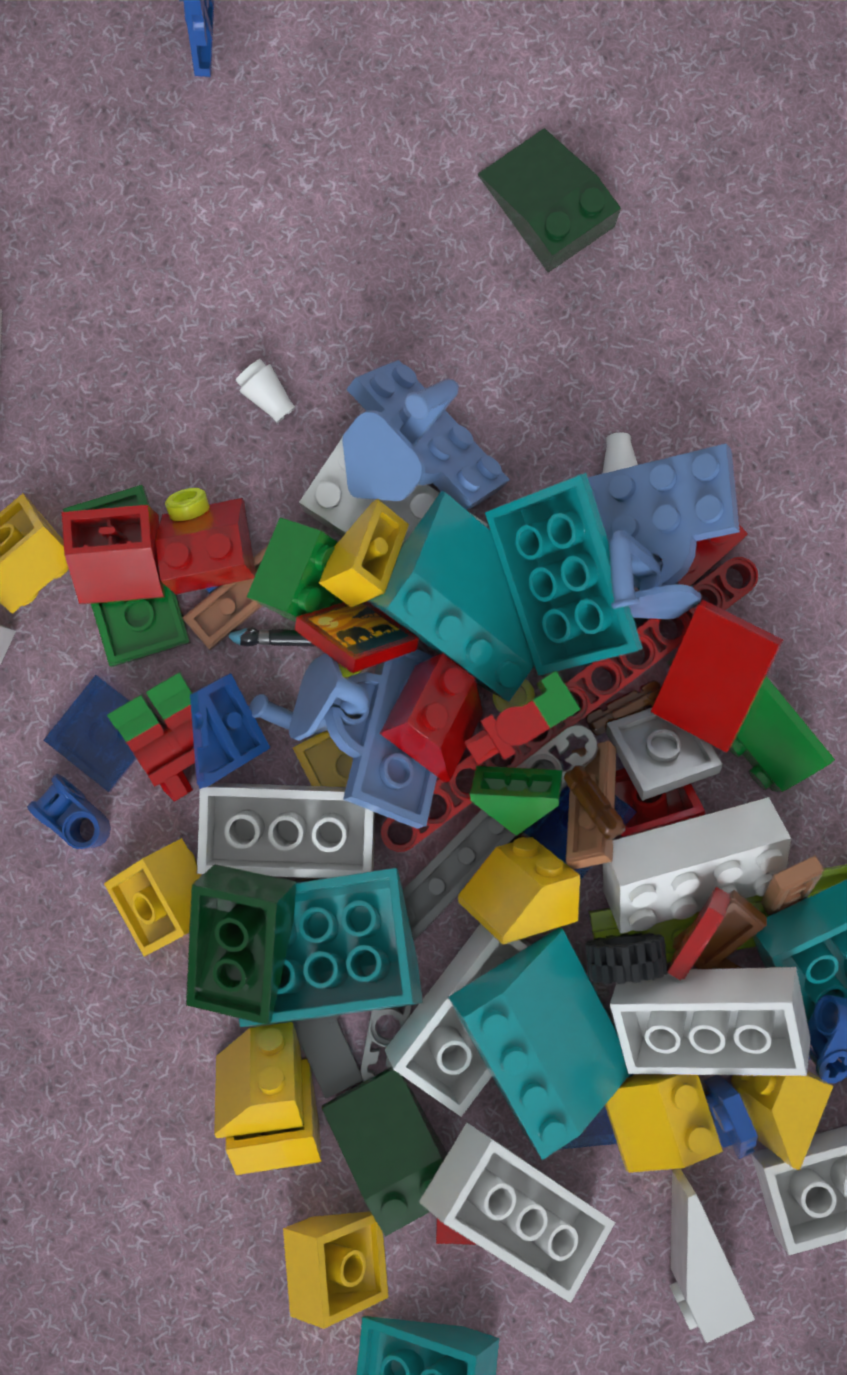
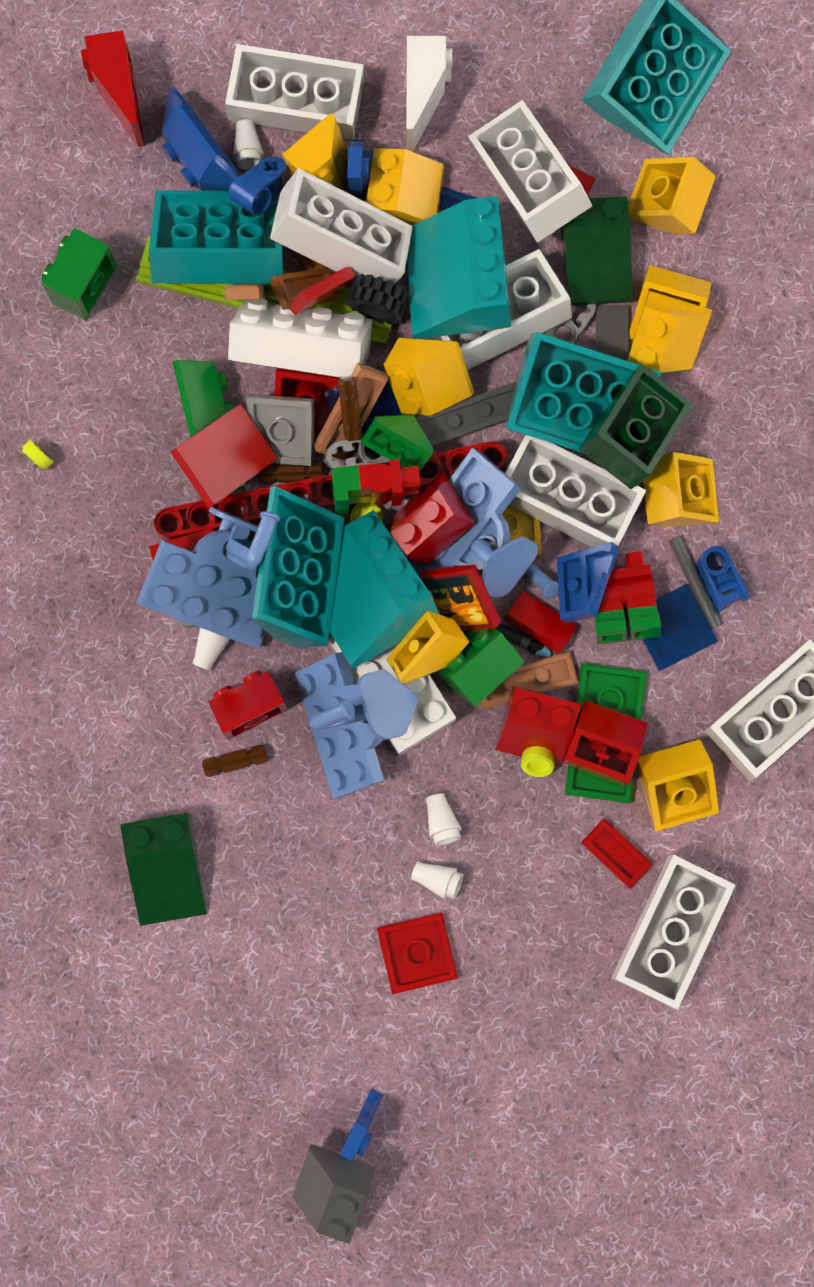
camera: 160 degrees left, 5 degrees down
(54, 447) = (616, 853): none -> red tile
(100, 798) = (695, 581): none -> dark grey bar
(227, 237) = (417, 953): none -> red tile
(240, 325) = (439, 879): none -> white cone
(257, 665) = (540, 622): none -> red tile
(528, 351) = (235, 760): none -> reddish brown axle
(545, 410) = (246, 704): none -> red slope

